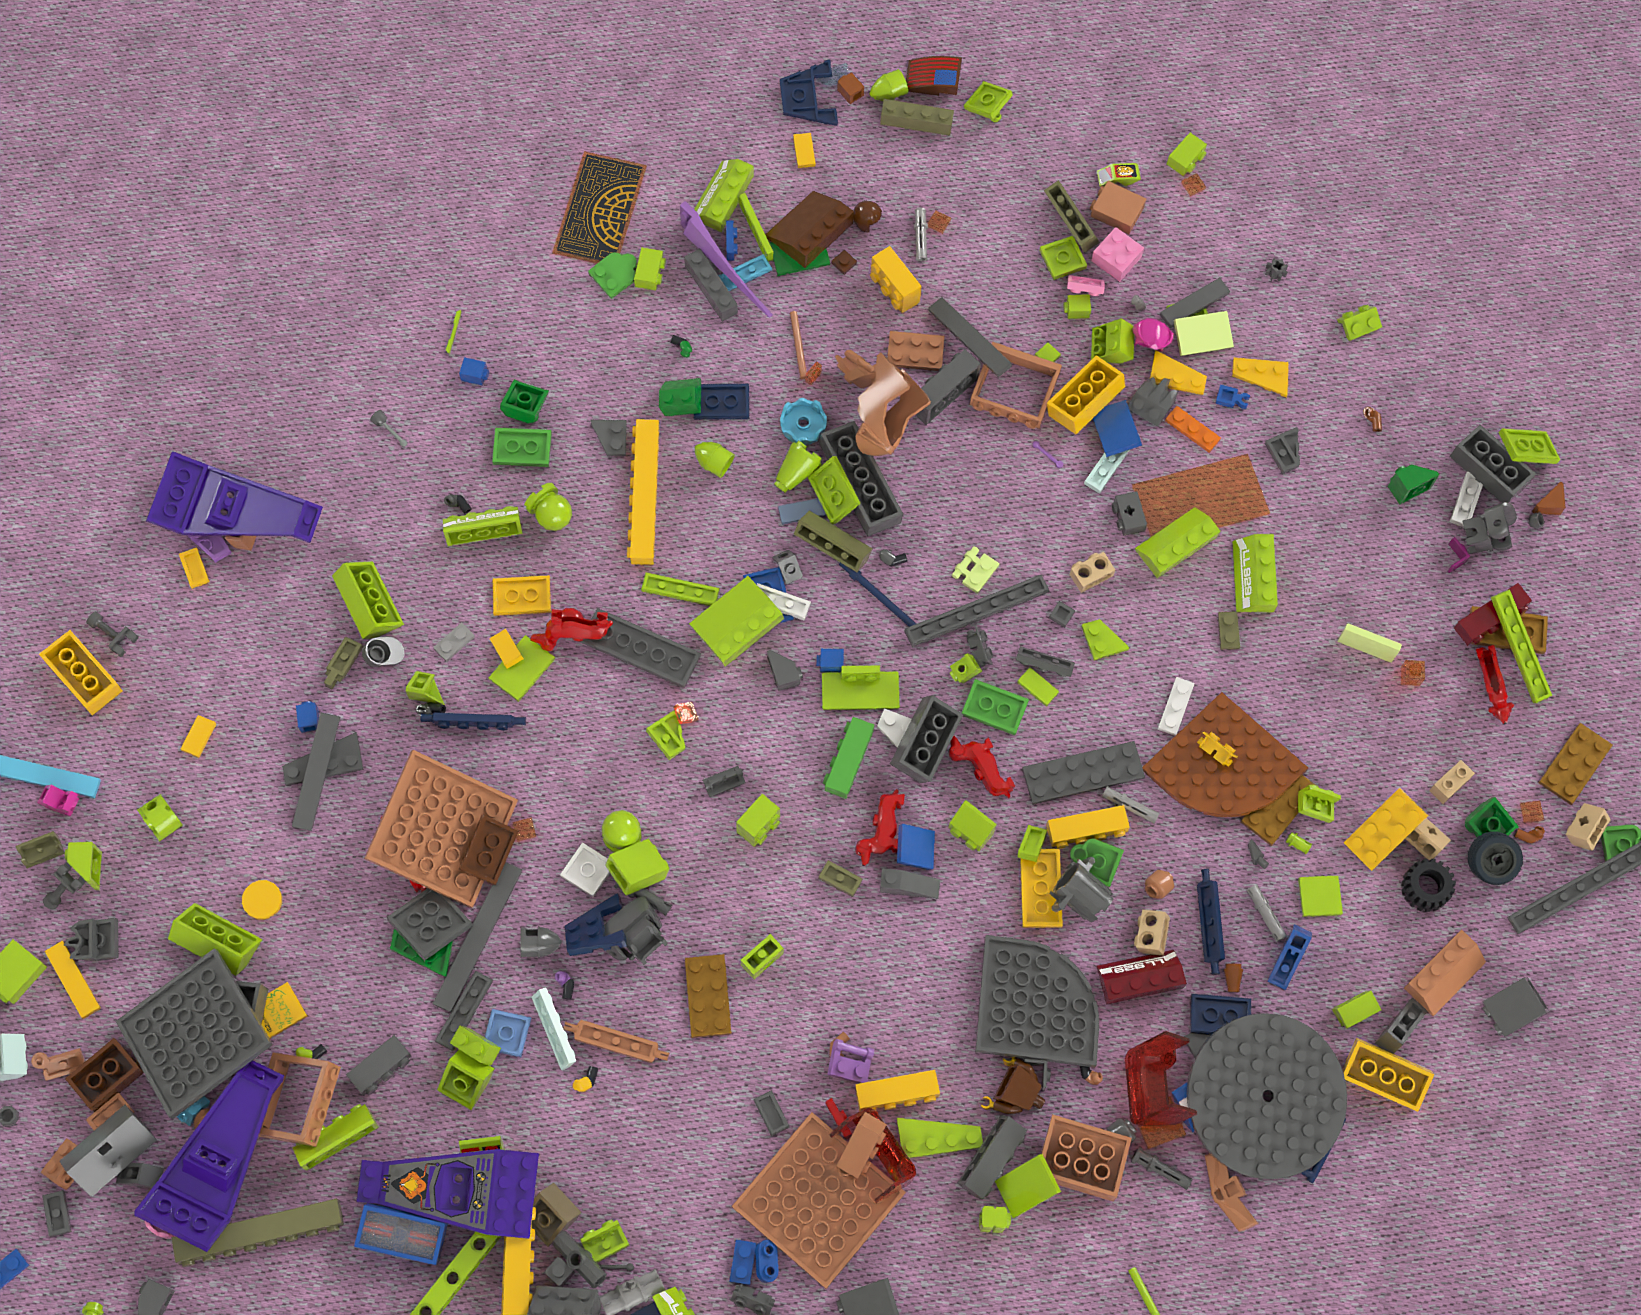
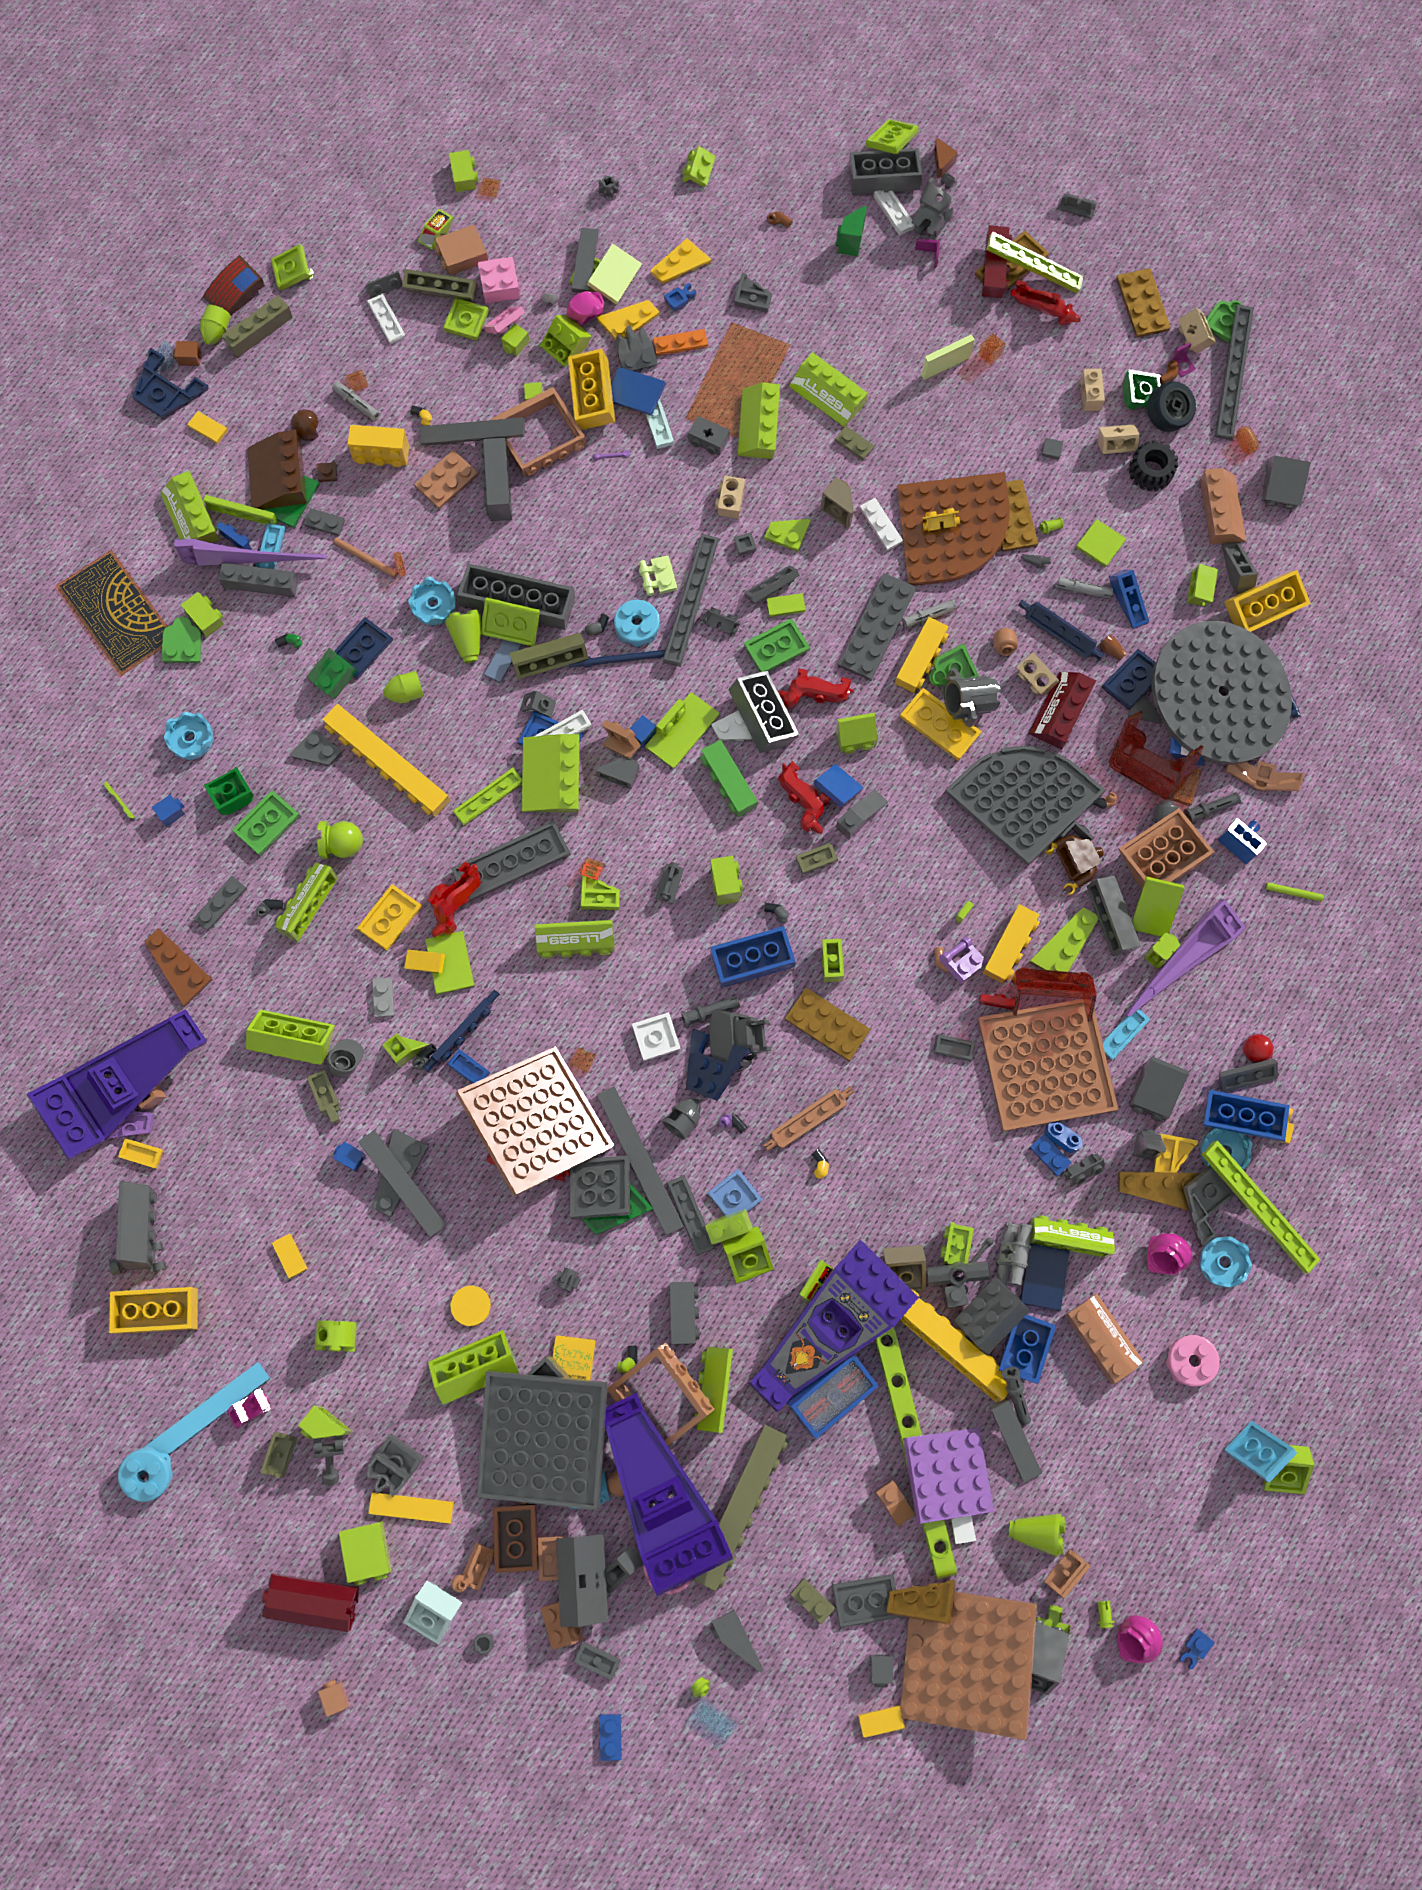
camera: 50 degrees left, 5 degrees up
(133, 607) = (136, 1226): none -> dark grey slope
(337, 955) = (567, 1279): none -> dark grey gear
(357, 480) = (179, 969): none -> dark orange wing
(379, 419) = (144, 912): hinge -> none
(432, 466) = (220, 903): none -> dark grey plate
(448, 747) = (467, 1067): none -> blue plate
(488, 850) = (580, 1098): reddish brown plate -> none
(540, 327) = (179, 728): none -> medium azure plate
(553, 1028) = (761, 1157): light aqua plate -> none
(615, 744) = (574, 938): none -> lime slope
(620, 830) = (648, 988): lime tile -> none
(637, 866) = (687, 997): lime brick -> none
(713, 891) = (752, 957): none -> blue brick
(771, 884) = (779, 910): none -> dark grey arm
(801, 293) = (324, 522): none -> dark grey plate
(808, 650) = (620, 739): none -> nougat bracket
(862, 1145) = (1040, 997): nougat brick -> none
(885, 382) = (479, 526): nougat piece -> none
(893, 1031) = (964, 912): none -> lime tile
(899, 1245) = (1124, 1033): none -> medium azure tile
(919, 597) = (636, 634): none -> medium azure plate
(955, 290) = (423, 413): none -> yellow arm
(971, 669) = (732, 636): lime brick -> none
(1010, 201) = (386, 319): none -> white tile
(1032, 843) = (903, 702): lime tile -> none
(1035, 176) = (384, 284): none -> dark grey hinge
(1044, 1251) = (1211, 933): none -> medium lavender plate
(1151, 1215) = (1242, 840): none -> blue brick
(1161, 654) = (838, 502): none -> dark tan slope
(1317, 803) = (1034, 488): lime bracket -> none
(1370, 791) = (1052, 448): none -> dark grey tile
(1386, 829) = (1092, 458): yellow plate -> none
(1527, 946) = (1247, 440): none -> clear orange brick
(1532, 811) = (1153, 358): clear orange tile -> none
(1554, 831) = (1180, 355): none -> magenta bracket
(1614, 641) = (1078, 206): none -> dark grey hinge

